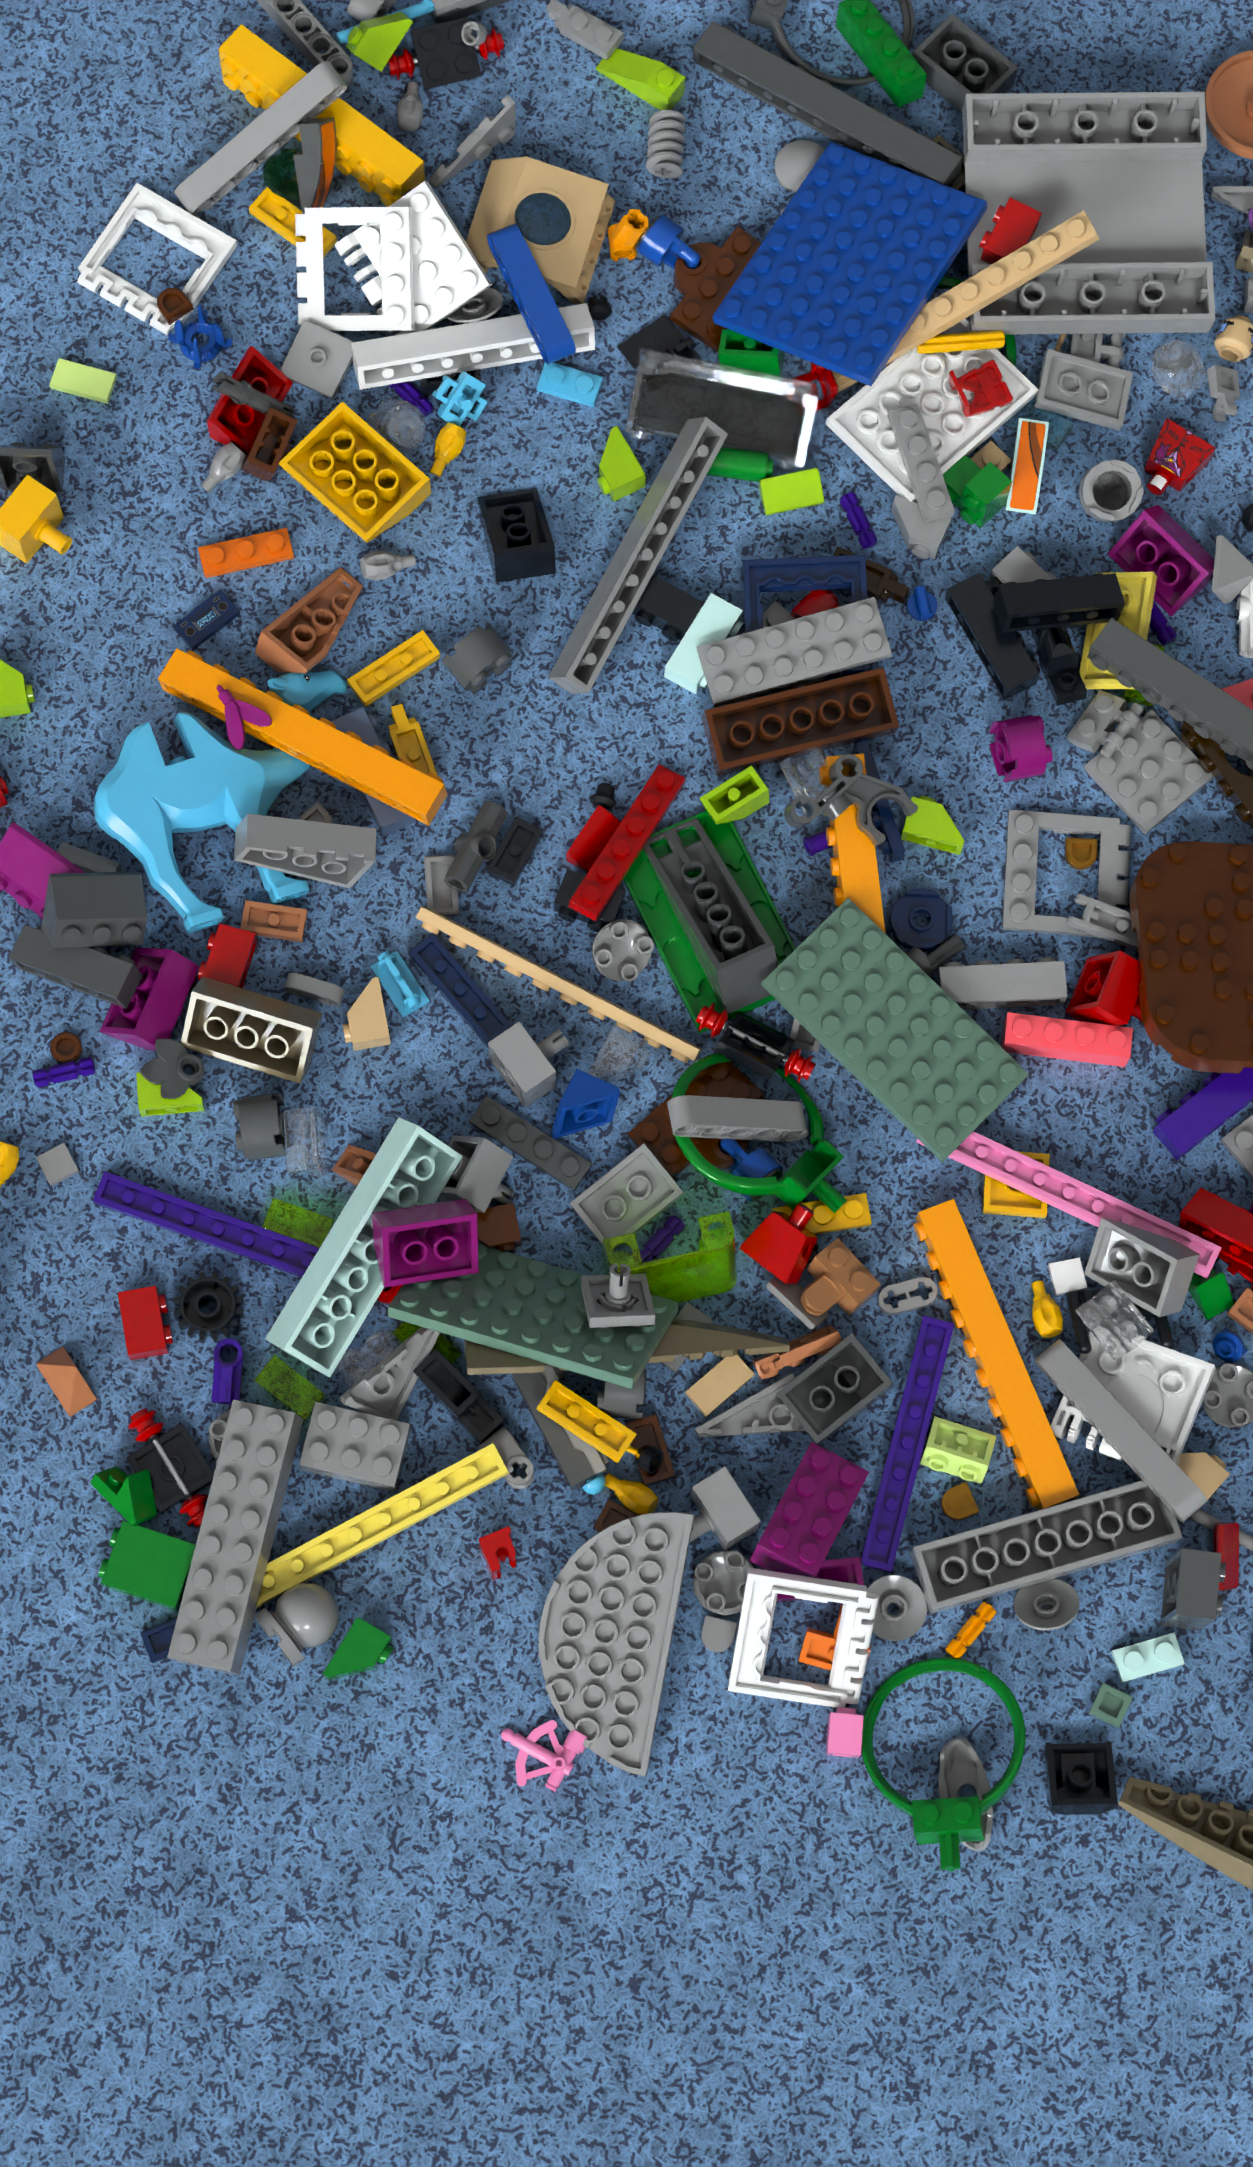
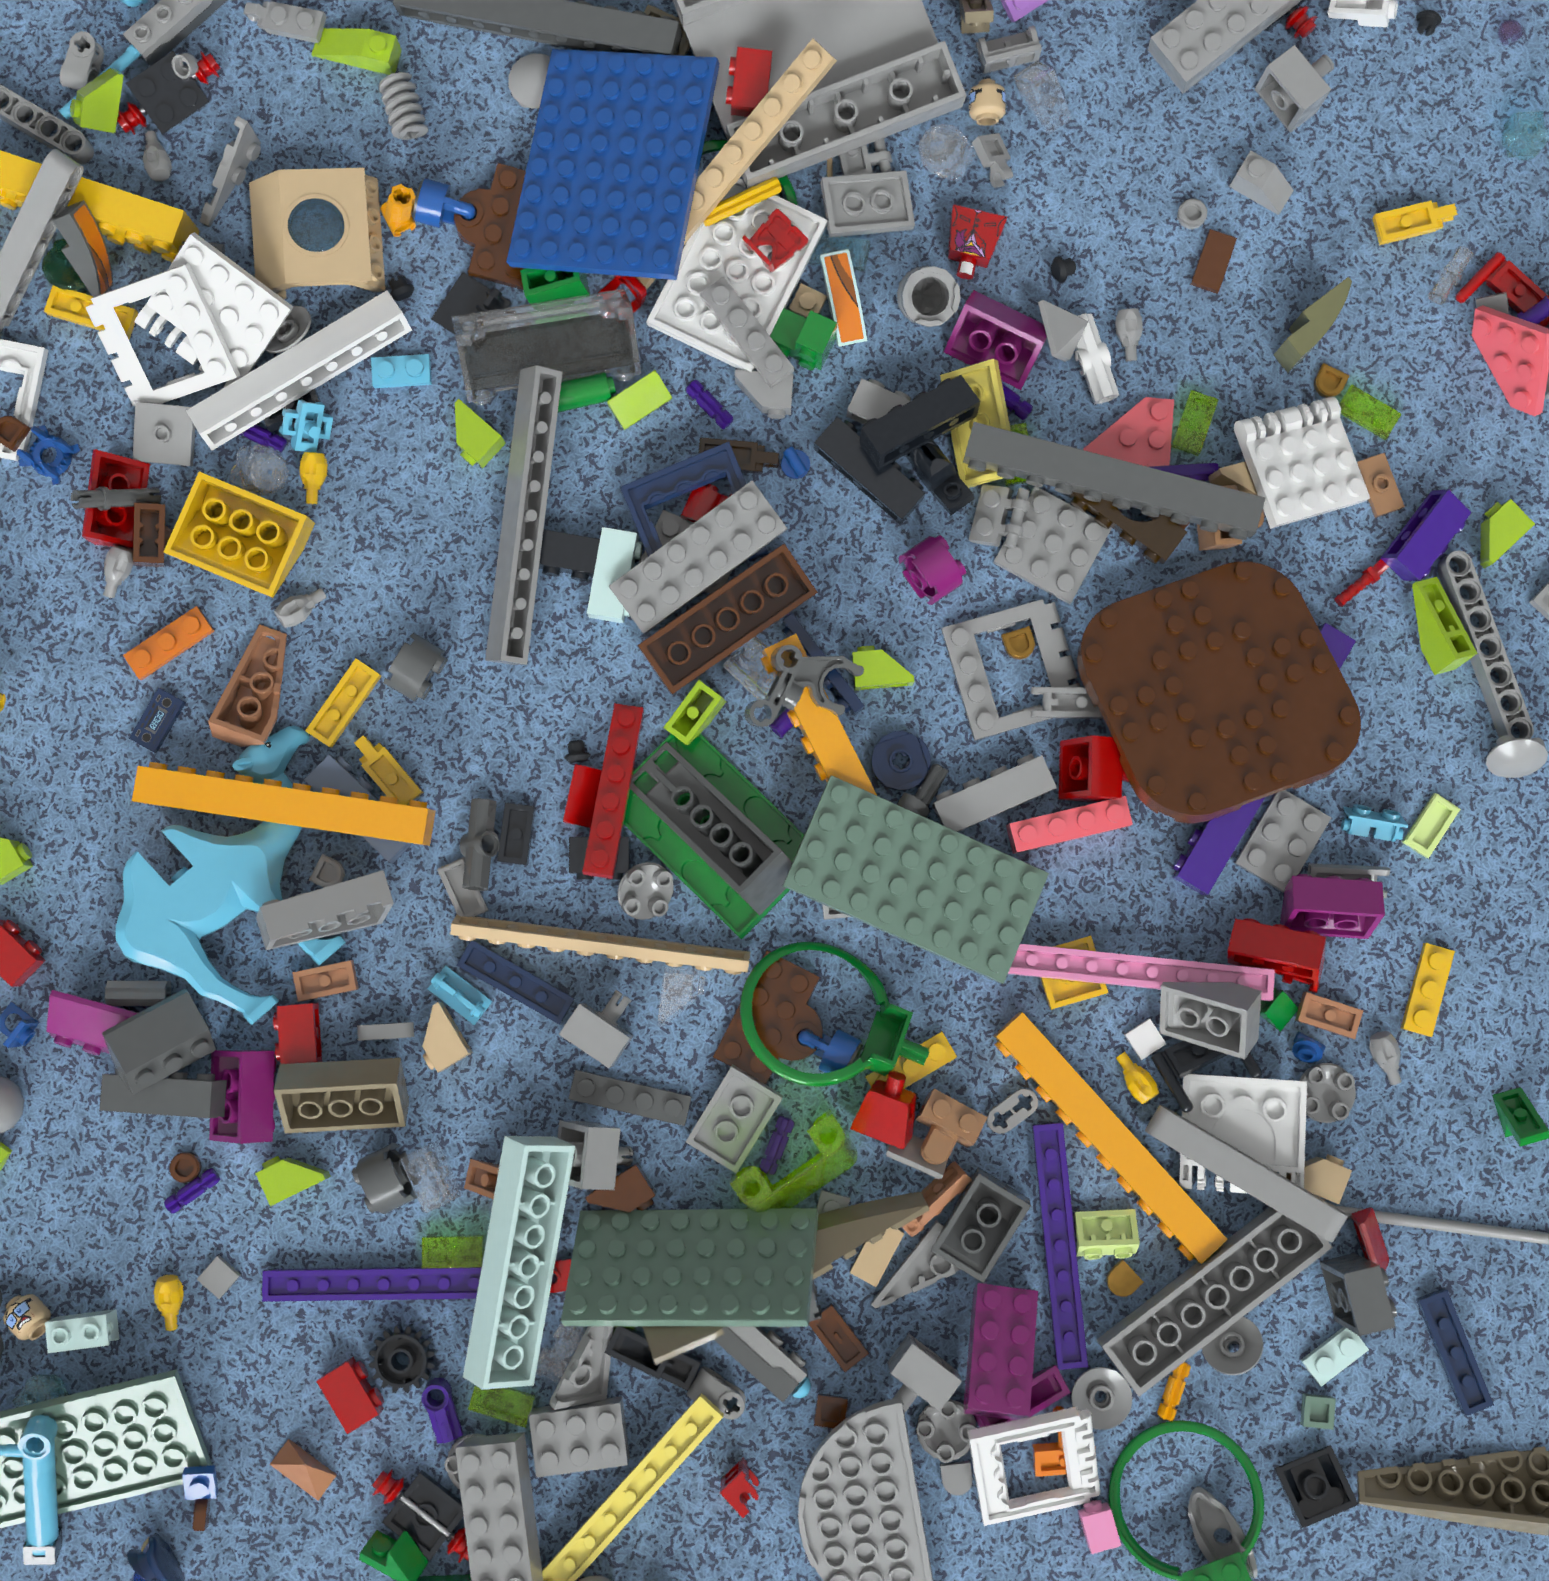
camera: 15 degrees left, 10 degrees up
(168, 1069) = (282, 1160): dark grey plate -> none
(236, 711) = (215, 807): magenta piece -> none
(426, 1242) = (572, 1244): magenta slope -> none
(517, 535) = (406, 535): black slope -> none
(531, 293) = (331, 303): blue beam -> none
(585, 1105) = (664, 1050): blue slope -> none
(586, 1421) = (776, 1344): yellow plate -> none
(617, 1299) = (757, 1231): light grey plate -> none
(633, 1495) = (838, 1383): yellow piece -> none
(647, 1458) = (839, 1349): black hinge -> none
(737, 1118) = (805, 1016): light grey beam -> none
(754, 1044) = (796, 936): black plate -> none
(1114, 1320) = (1205, 1072): clear bracket -> none

